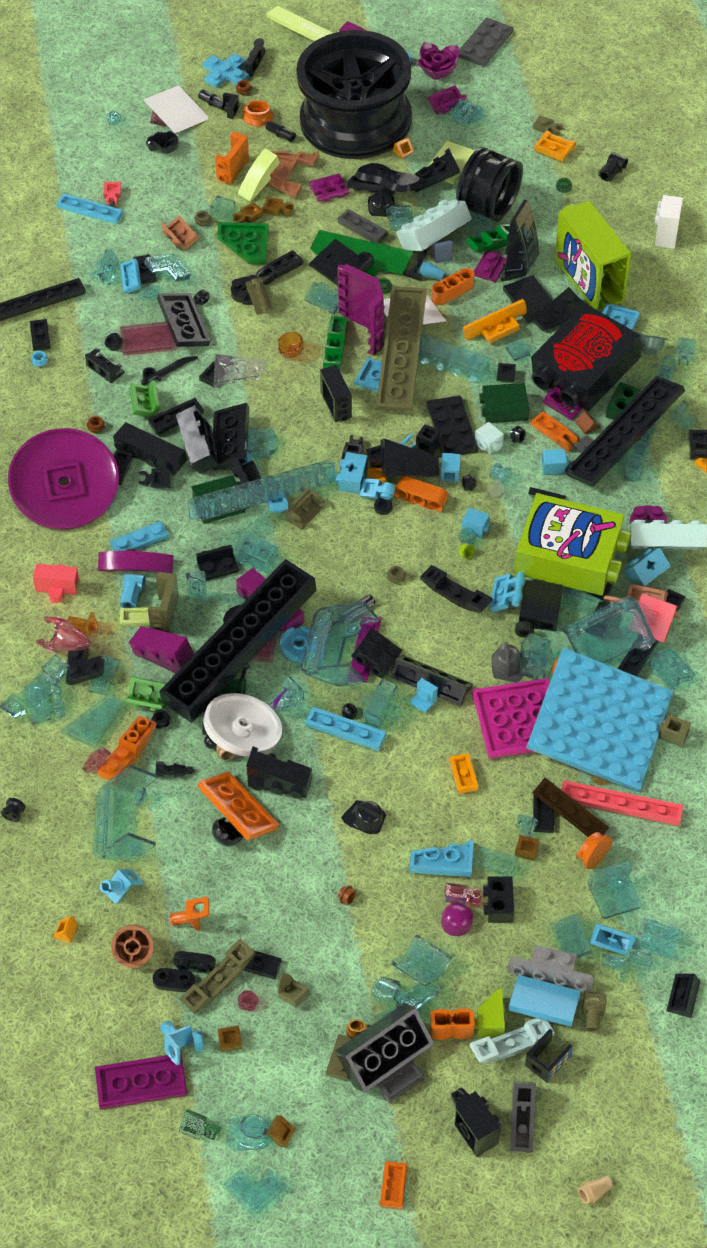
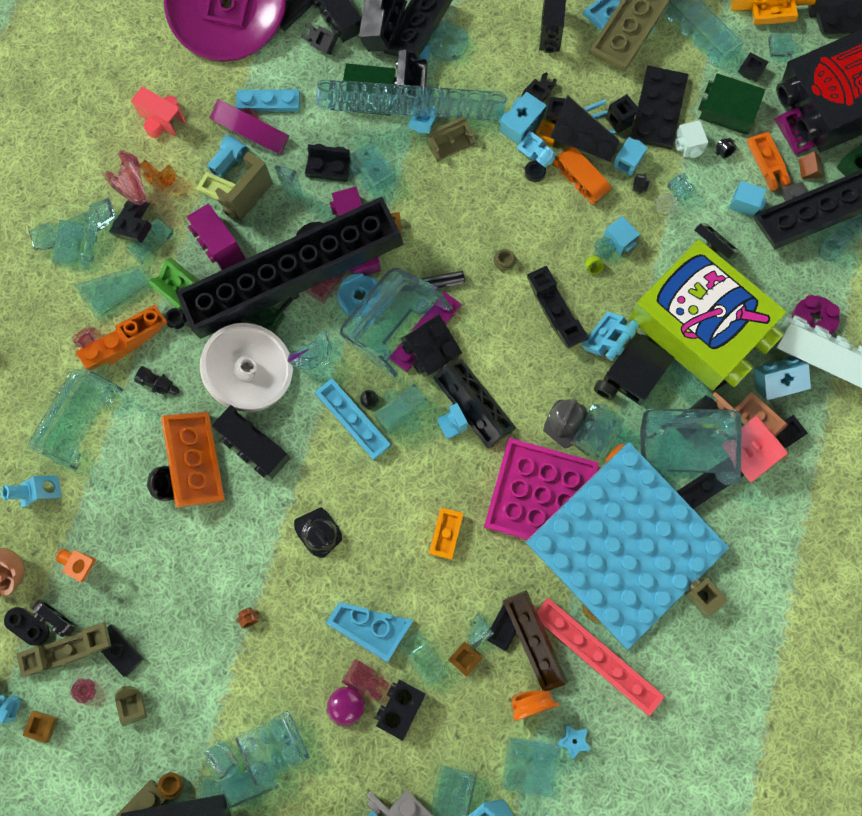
camera: 30 degrees right, 20 degrees up
(643, 864) = (571, 734): none -> medium azure plate
(670, 668) = (743, 514): clear light blue bracket -> none

